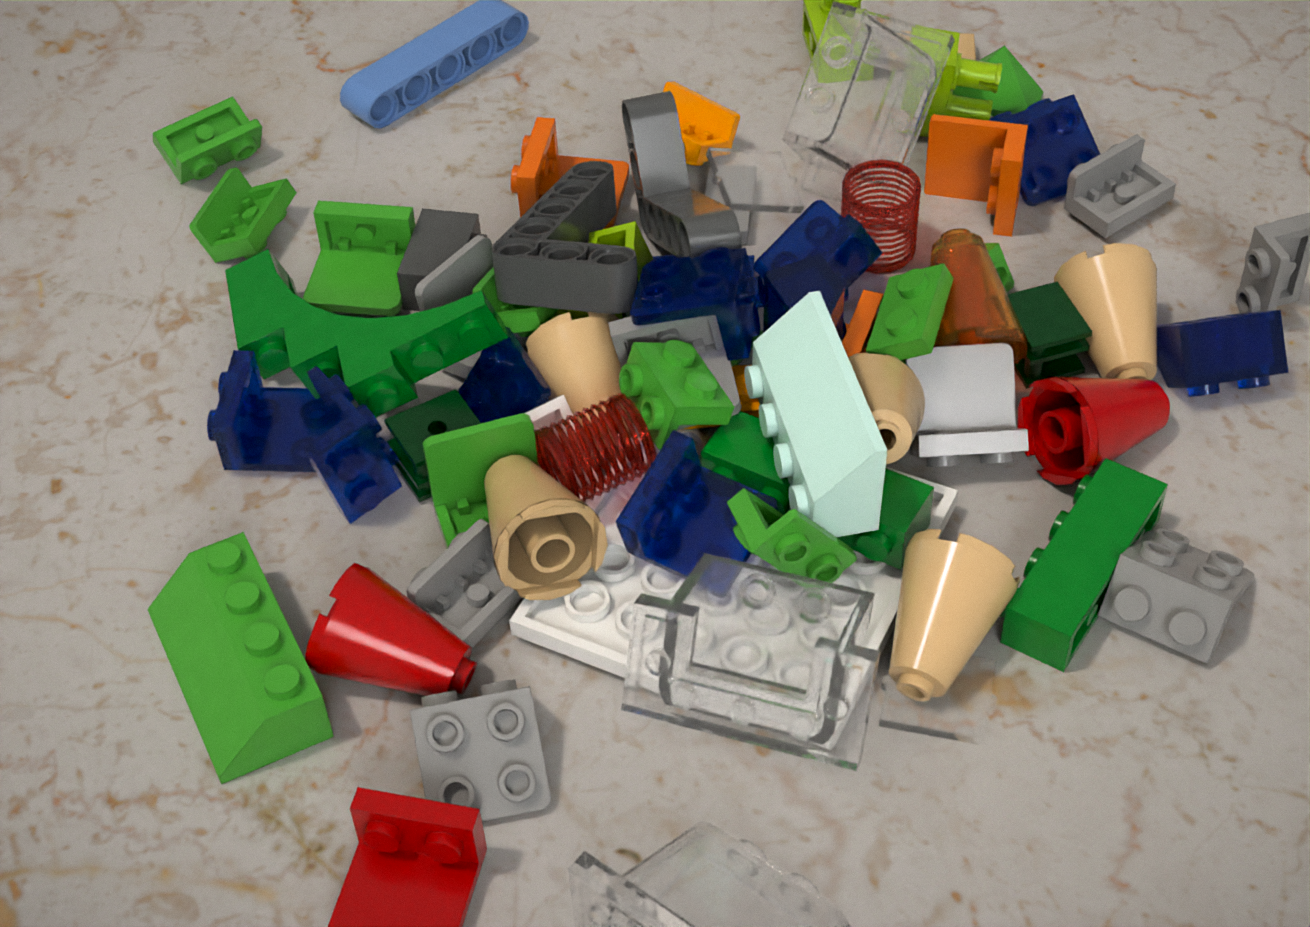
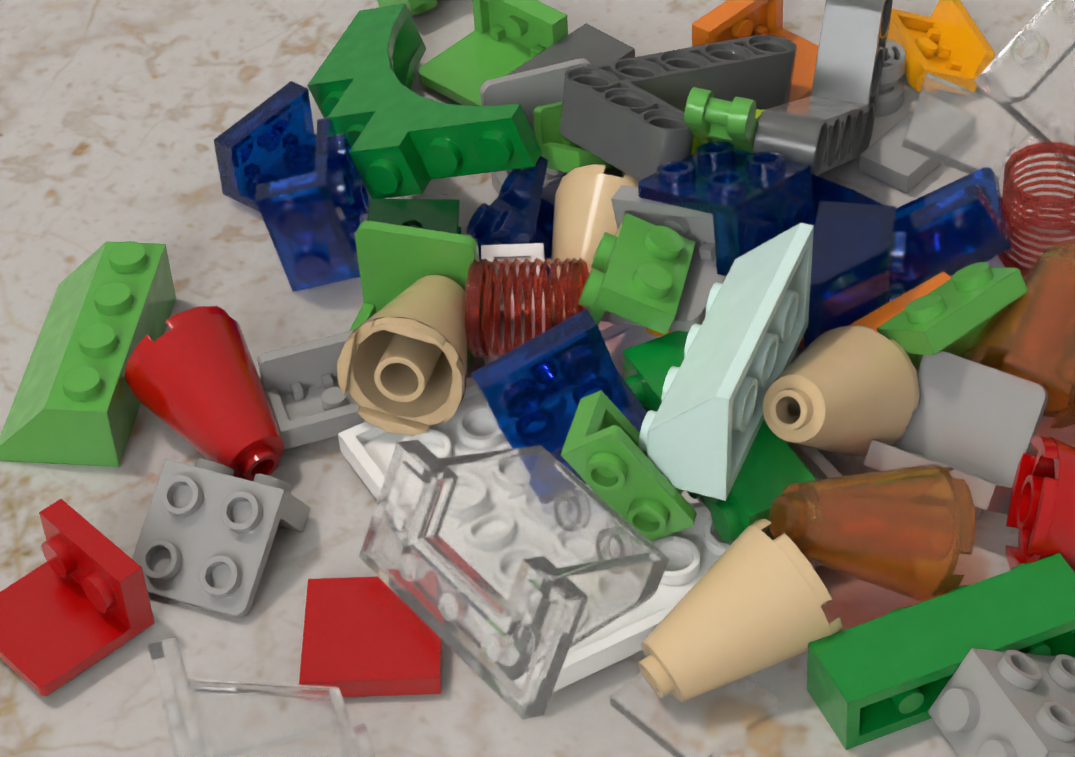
camera: 35 degrees right, 5 degrees down
(662, 238) = (721, 120): none -> bright green plate
(667, 773) = (367, 641): none -> red tile
(996, 491) = (883, 527): none -> clear orange cone

